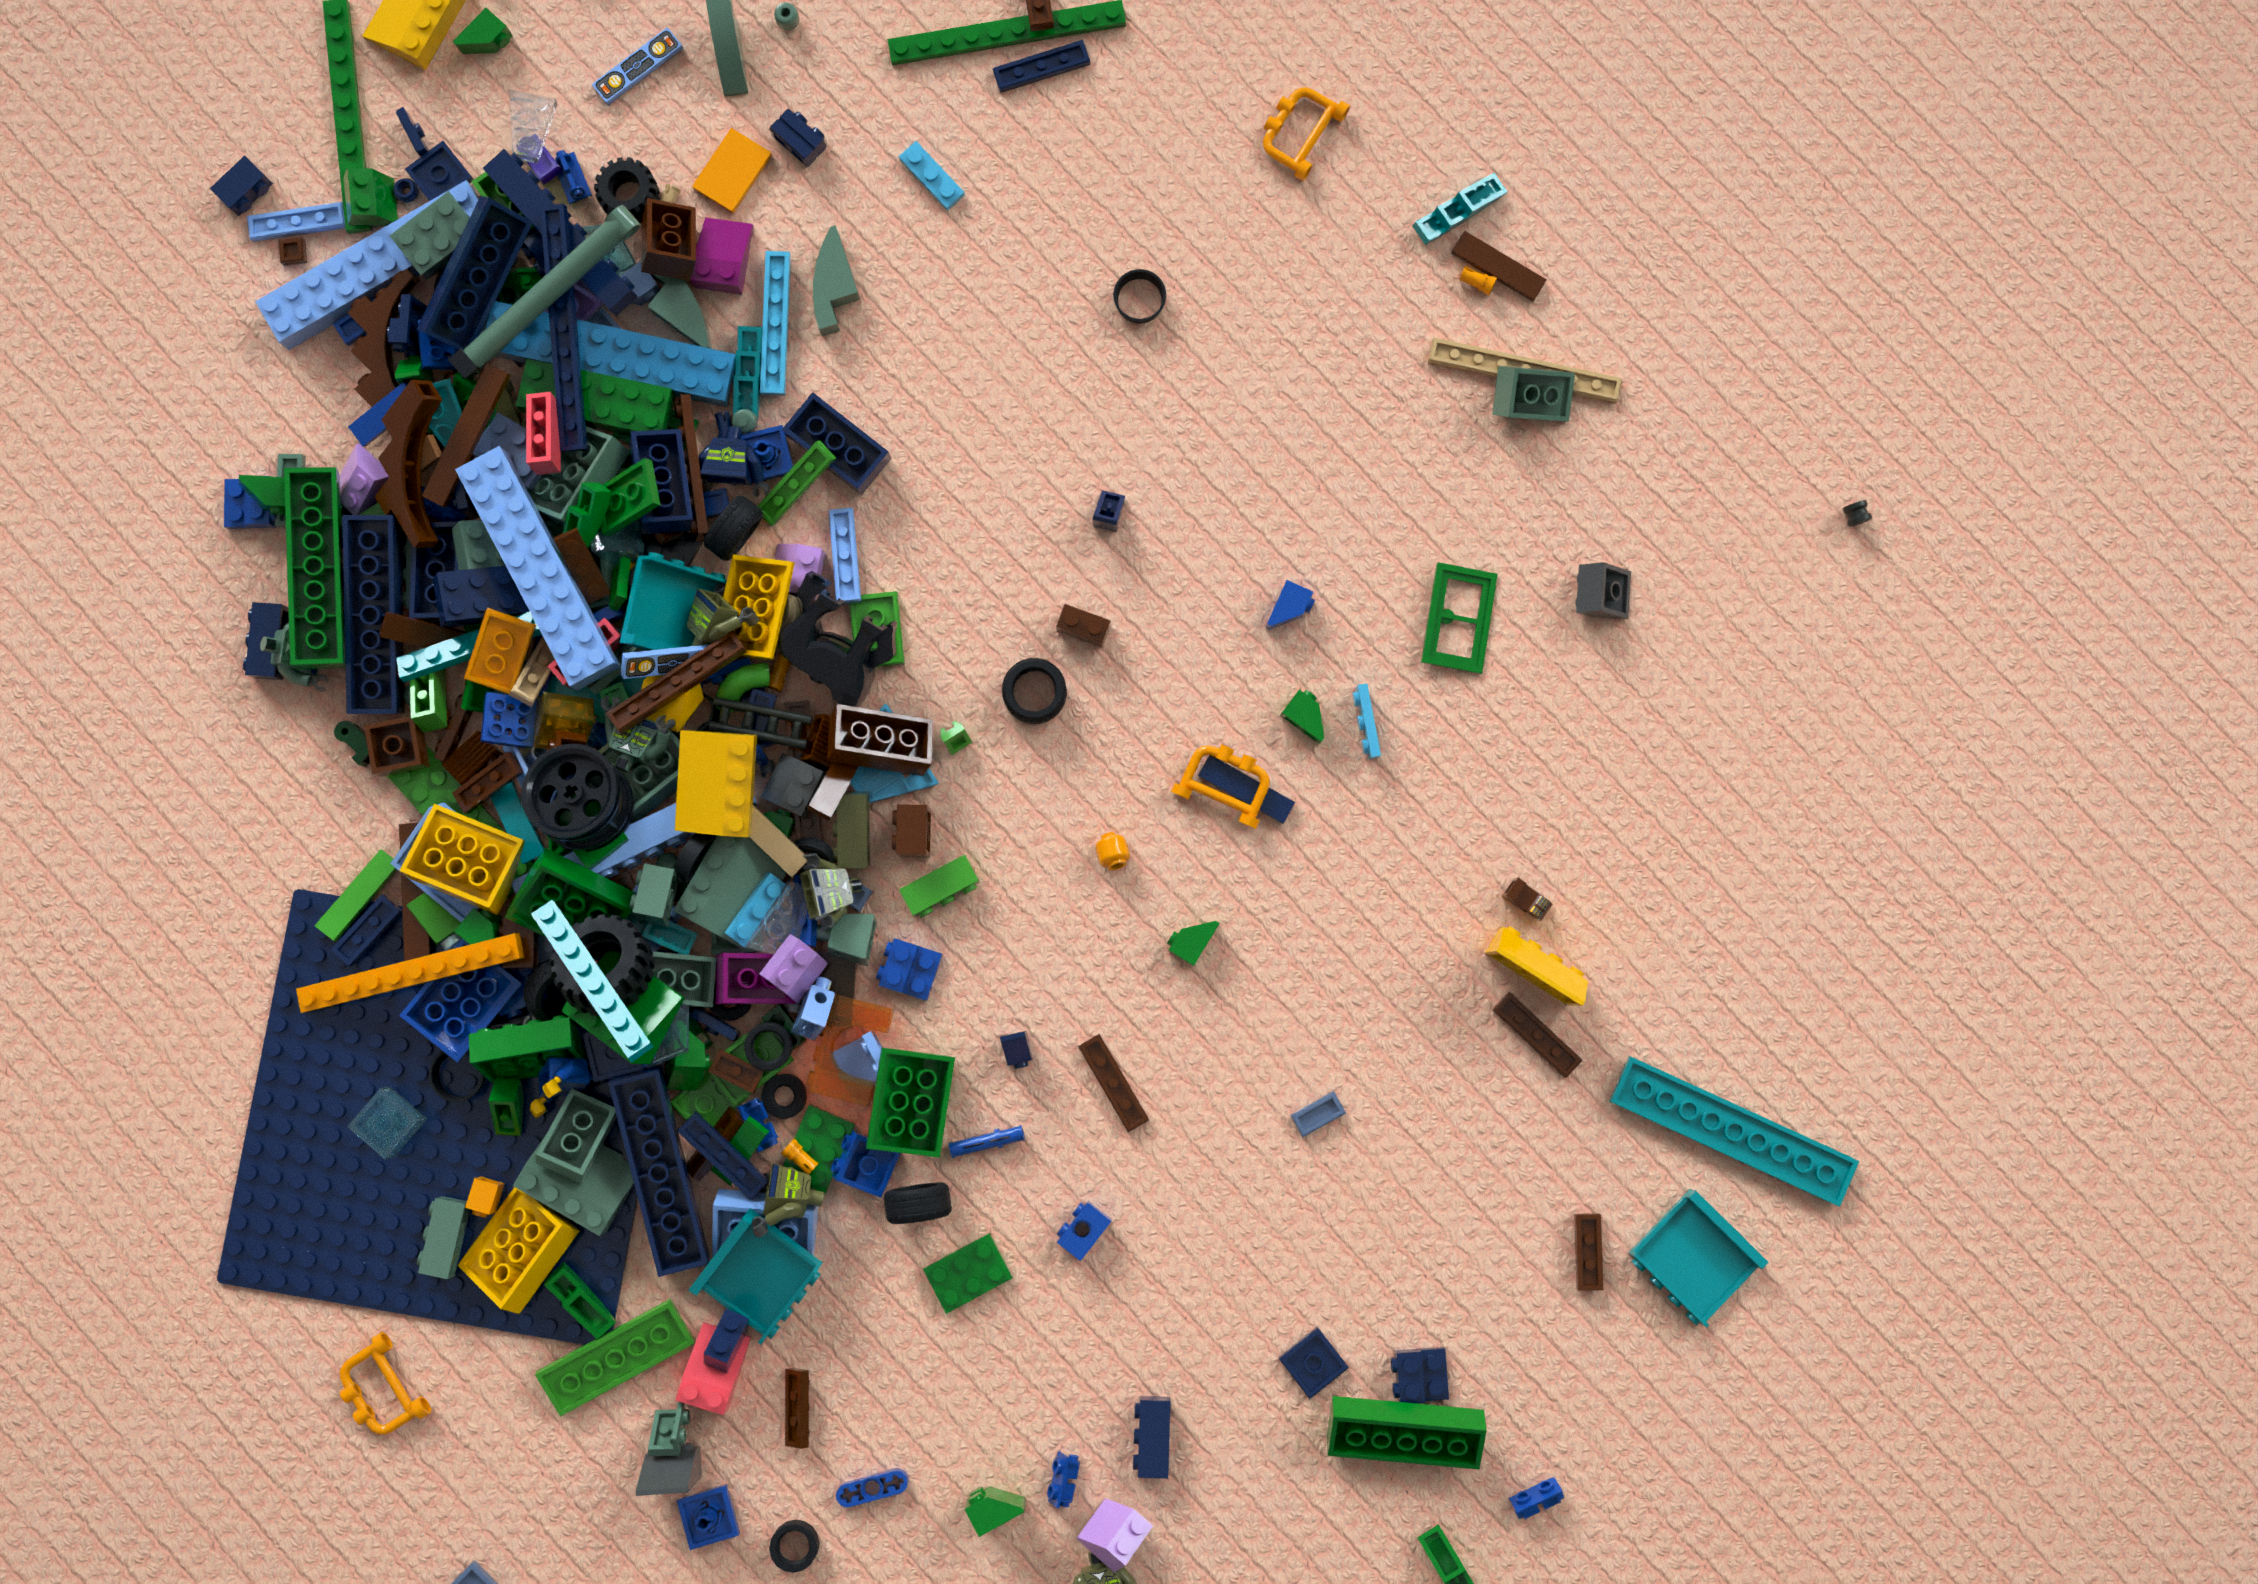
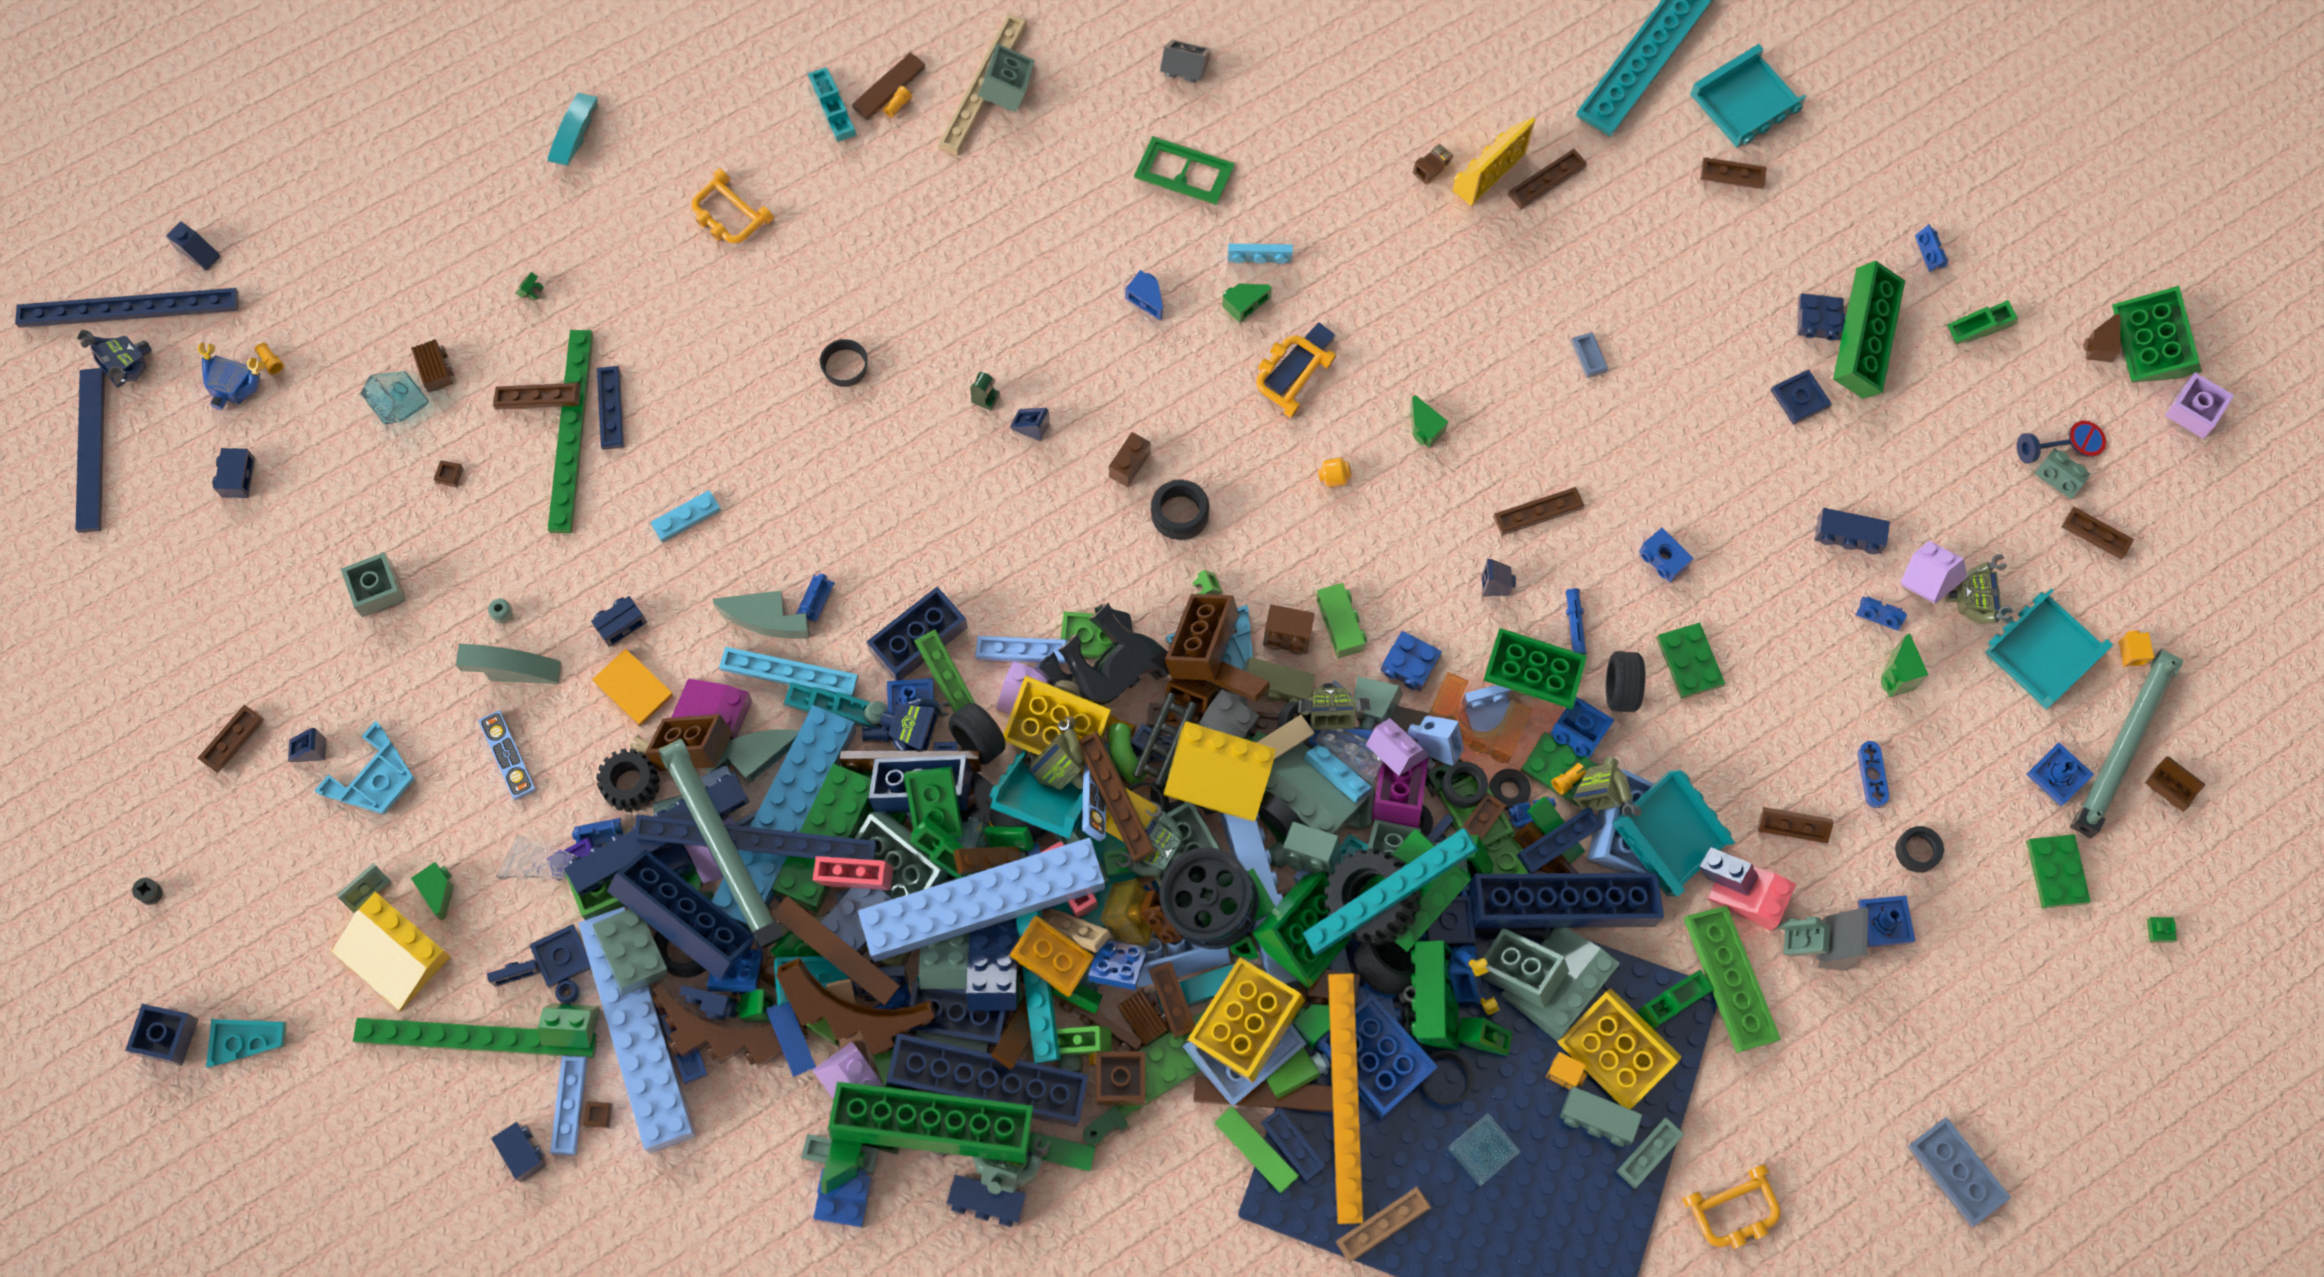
camera: 80 degrees left, 15 degrees down
(304, 1034) = (1383, 1224): none -> medium nougat tile
(329, 703) = (1064, 1152): none -> green tile
(417, 1293) = (1650, 1153): none -> sand green plate
(863, 330) = (815, 597): none -> blue hinge
(1132, 454) = (983, 391): none -> dark green leg

